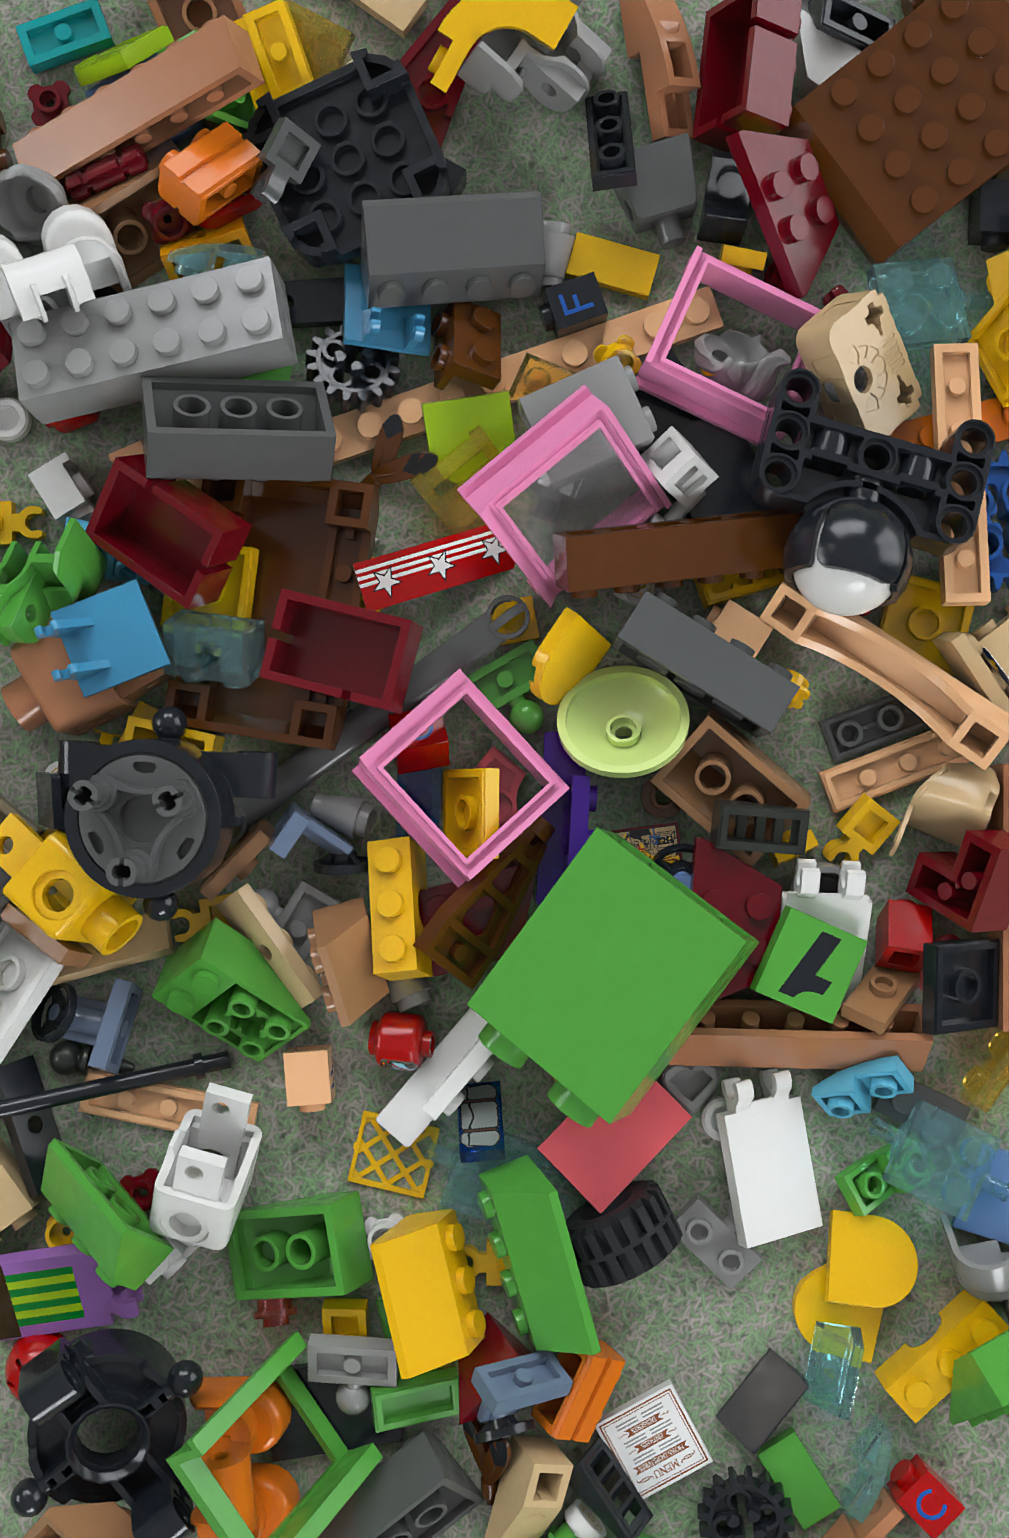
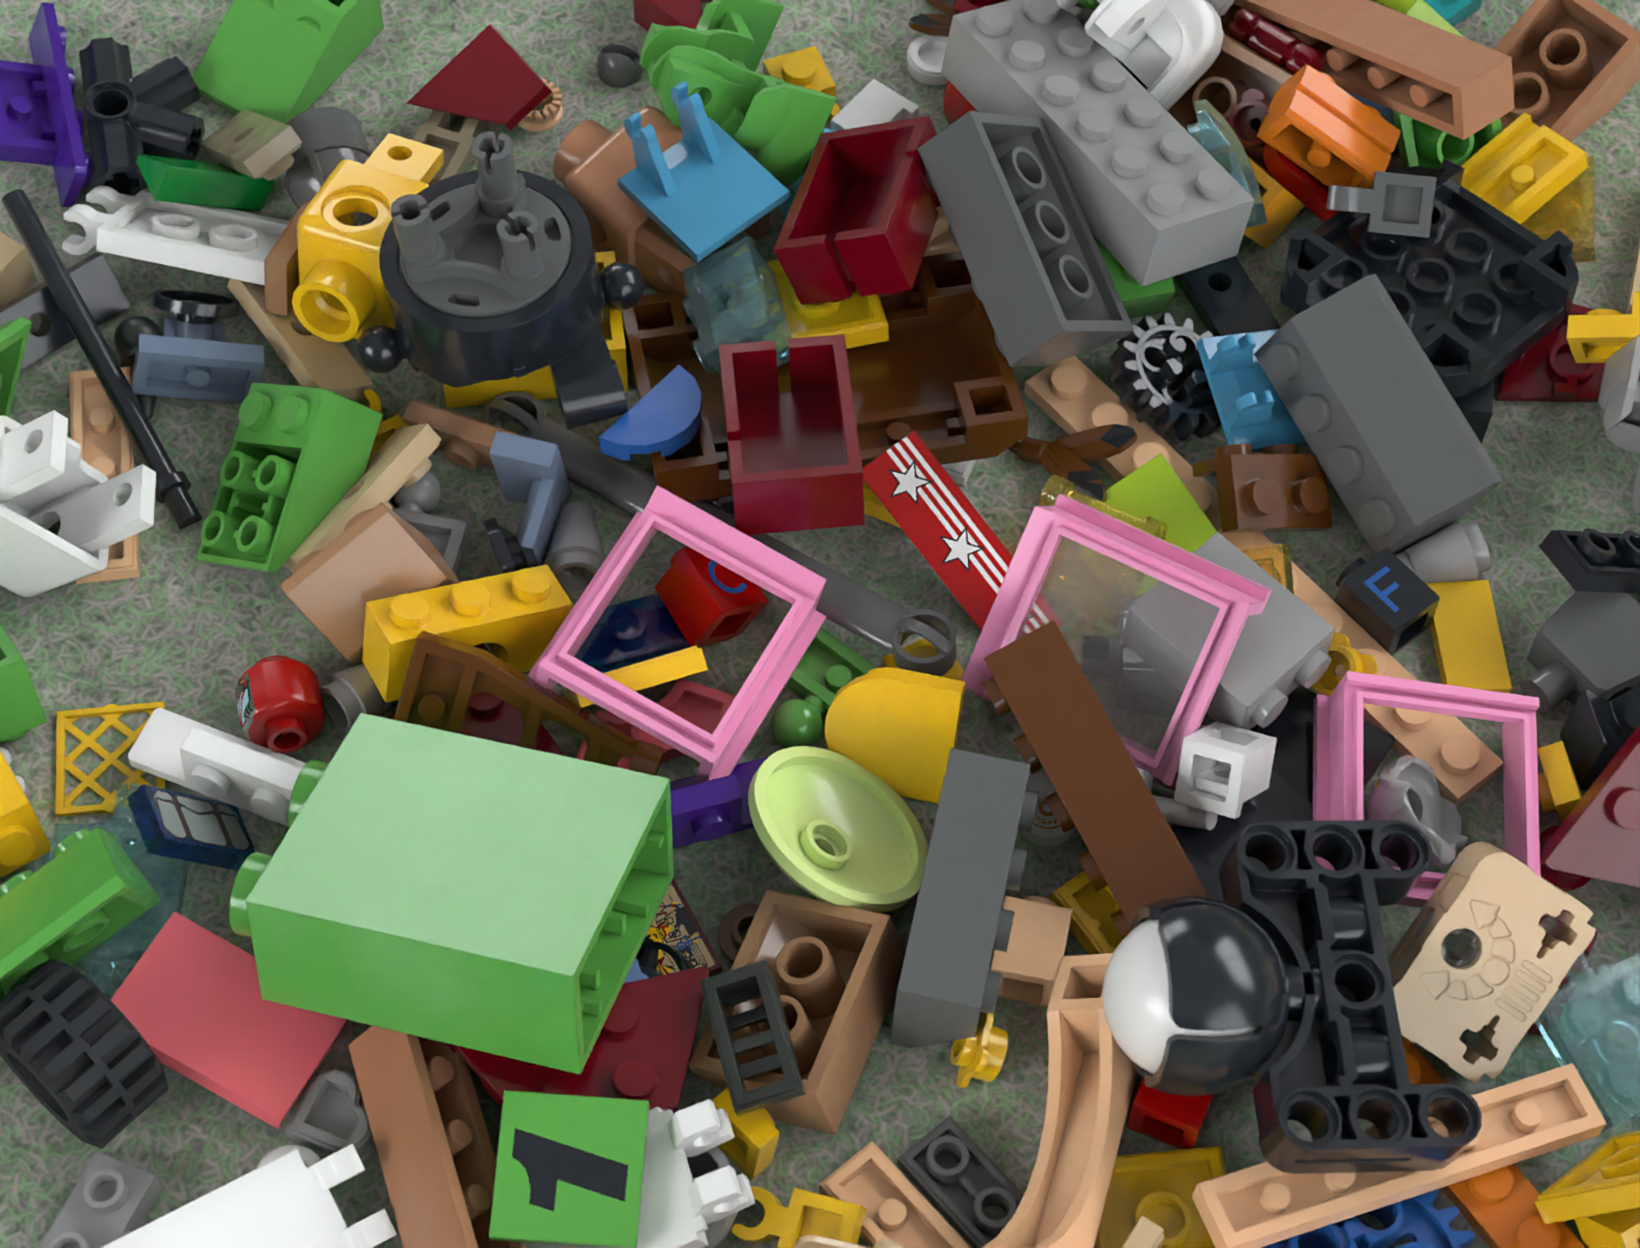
camera: 70 degrees right, 30 degrees down
(291, 733) = (658, 421): none -> blue tile
(309, 1077) = (194, 611): light nougat brick -> none

